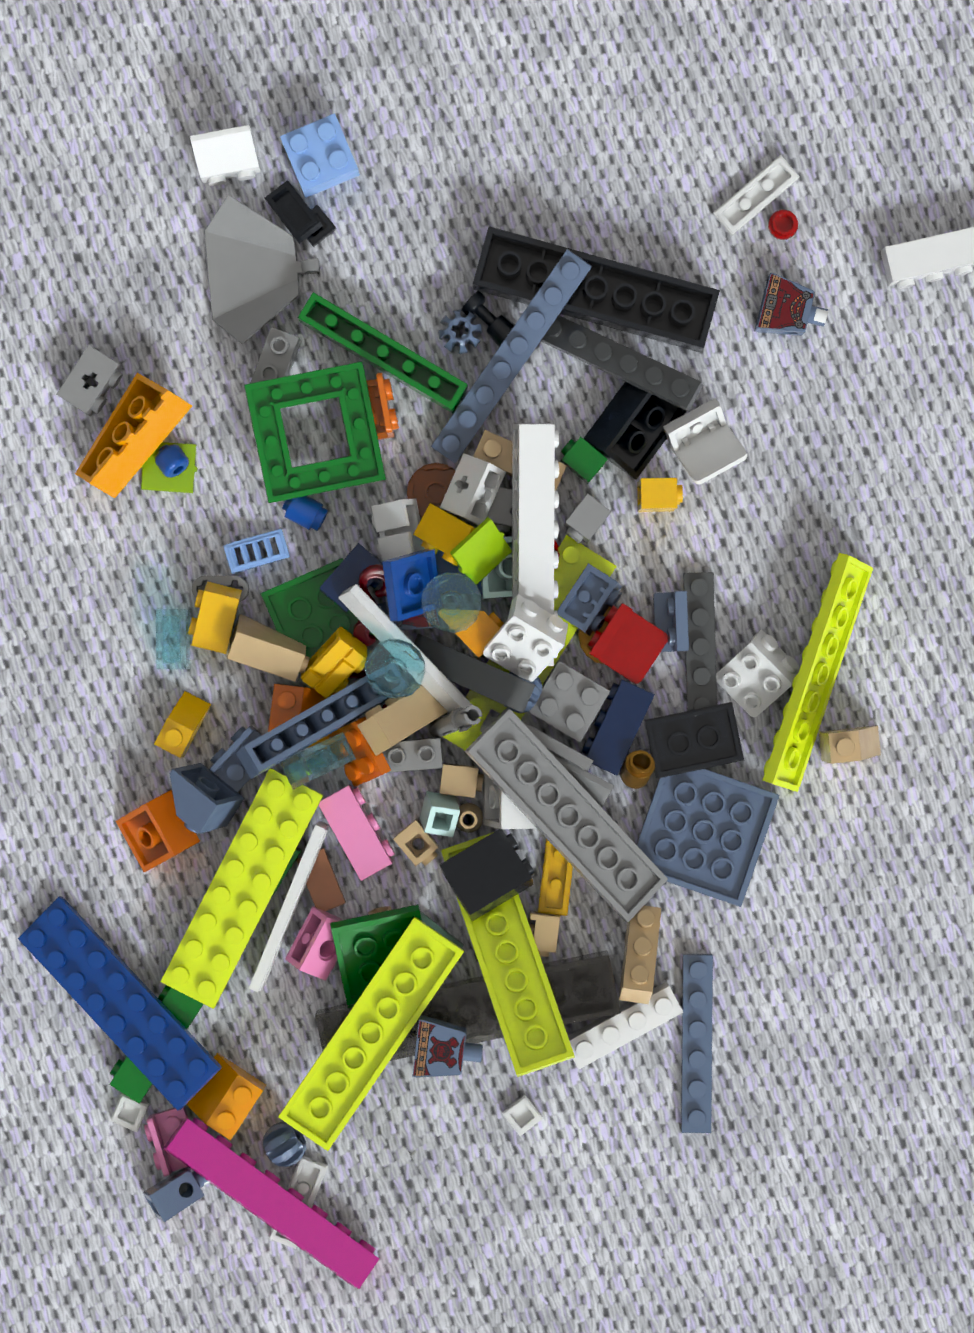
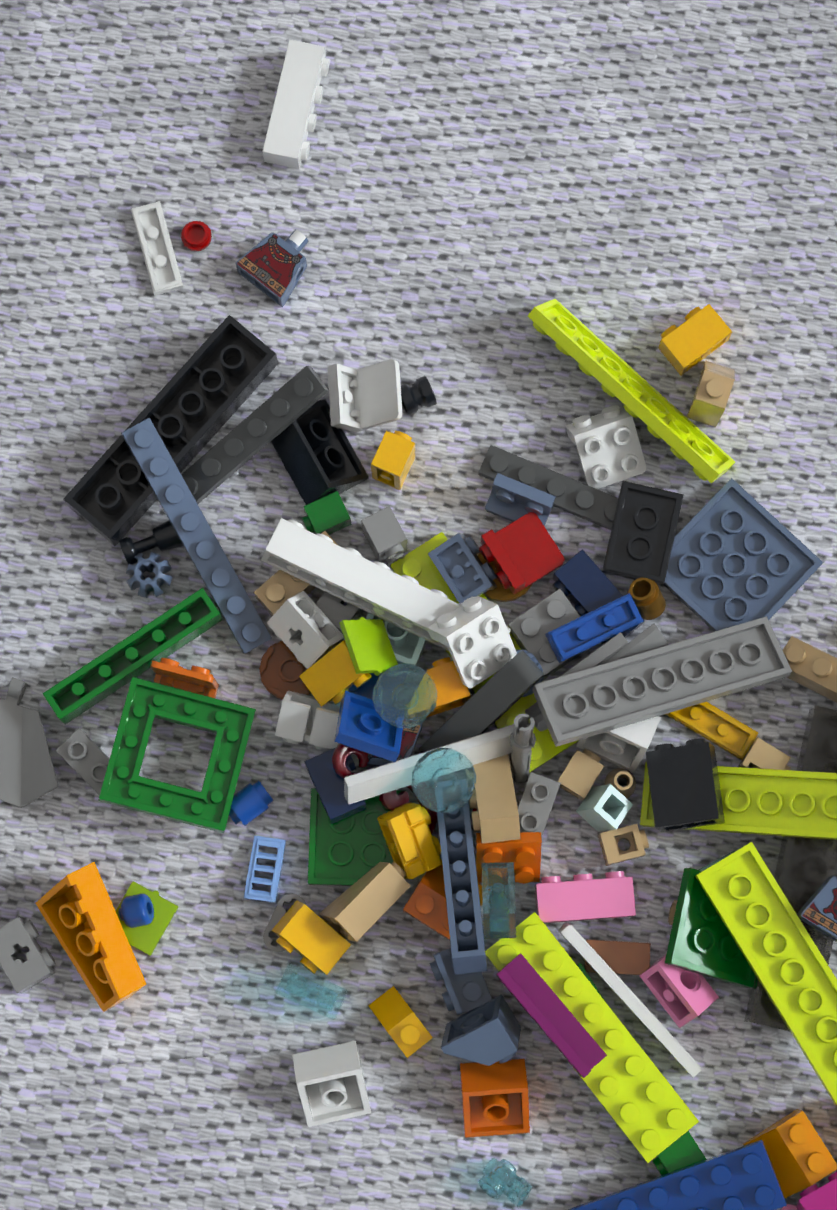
camera: 65 degrees left, 10 degrees down
(94, 866) = (502, 1178): none -> clear light blue plate
(106, 690) = (331, 1083): none -> white slope
(241, 848) = (551, 1015): none -> magenta fence
(588, 736) = (594, 627): none -> blue tile
(727, 488) = (419, 394): none -> black wheel
(891, 707) = (694, 339): none -> yellow brick

